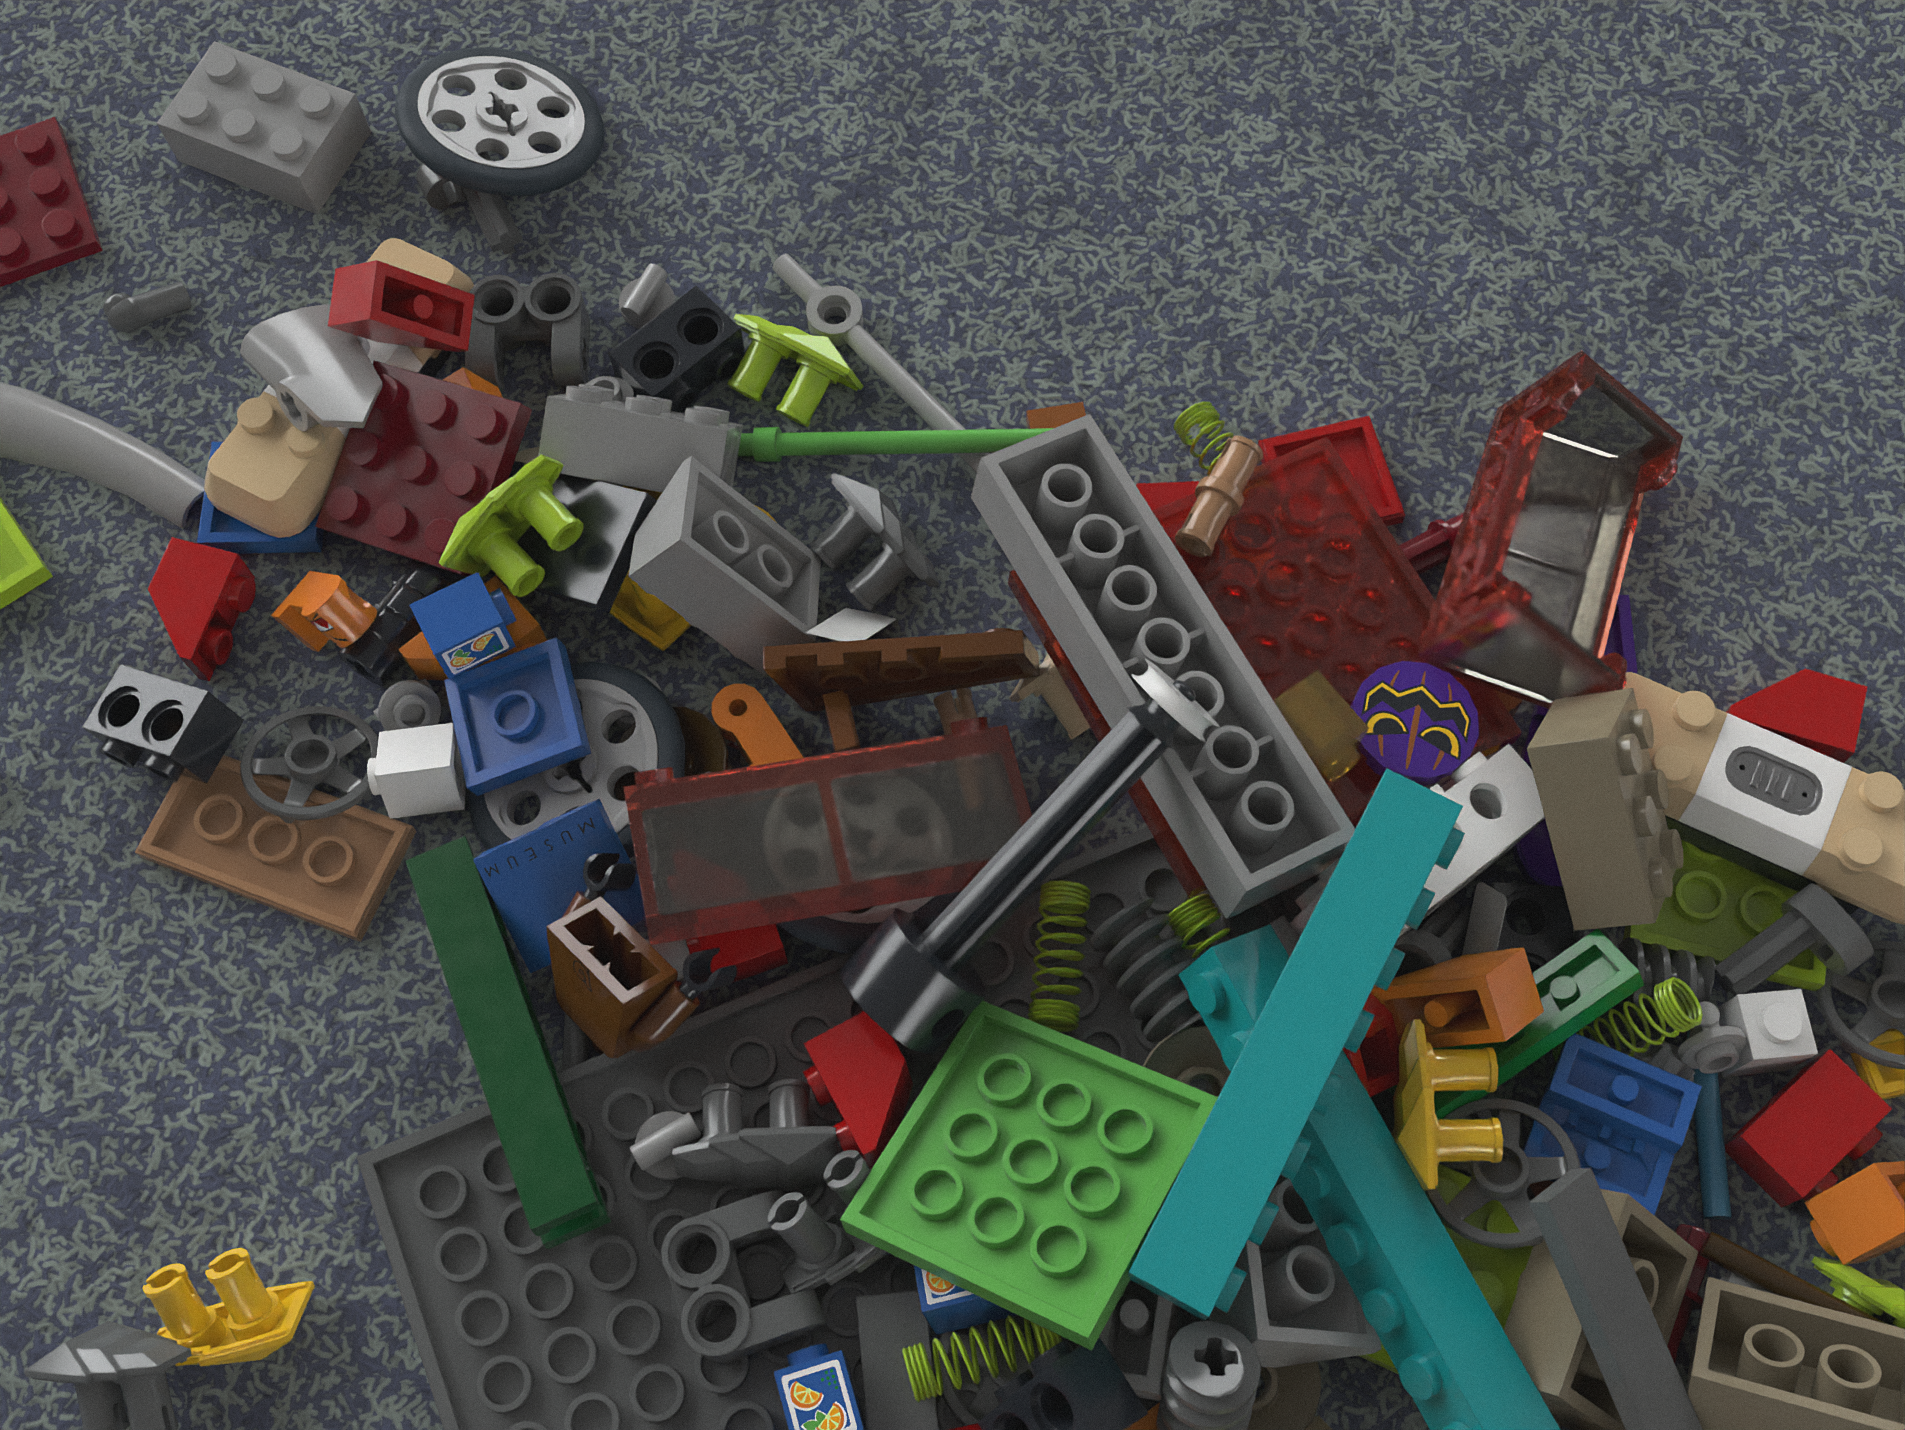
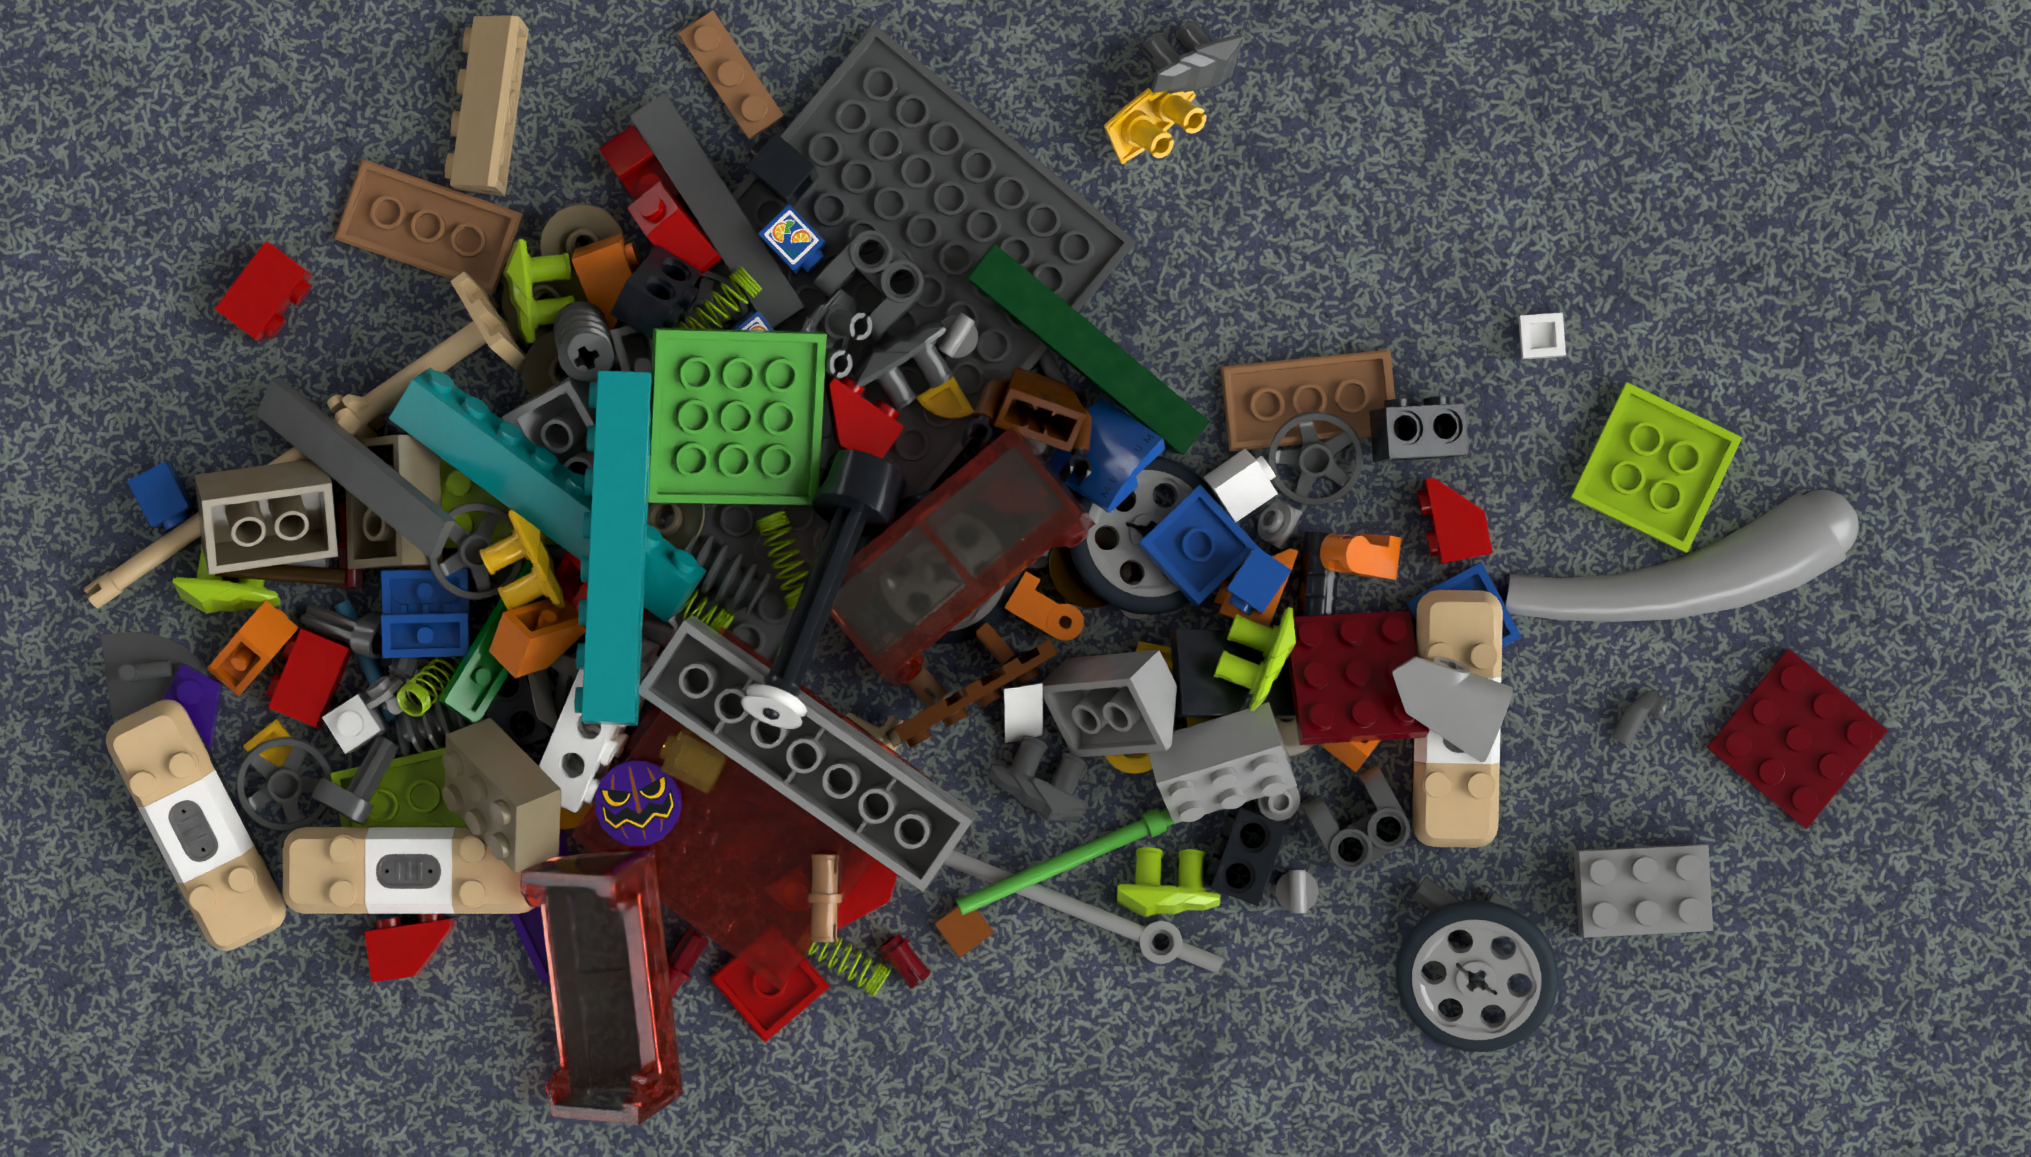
camera: 160 degrees right, 20 degrees up
(400, 307) = (1428, 771): red slope -> none
(732, 1062) = (946, 401): none -> yellow tile
(1151, 430) = (903, 958): none -> dark red pin
(1711, 1147) = (361, 634): none -> dark grey piece

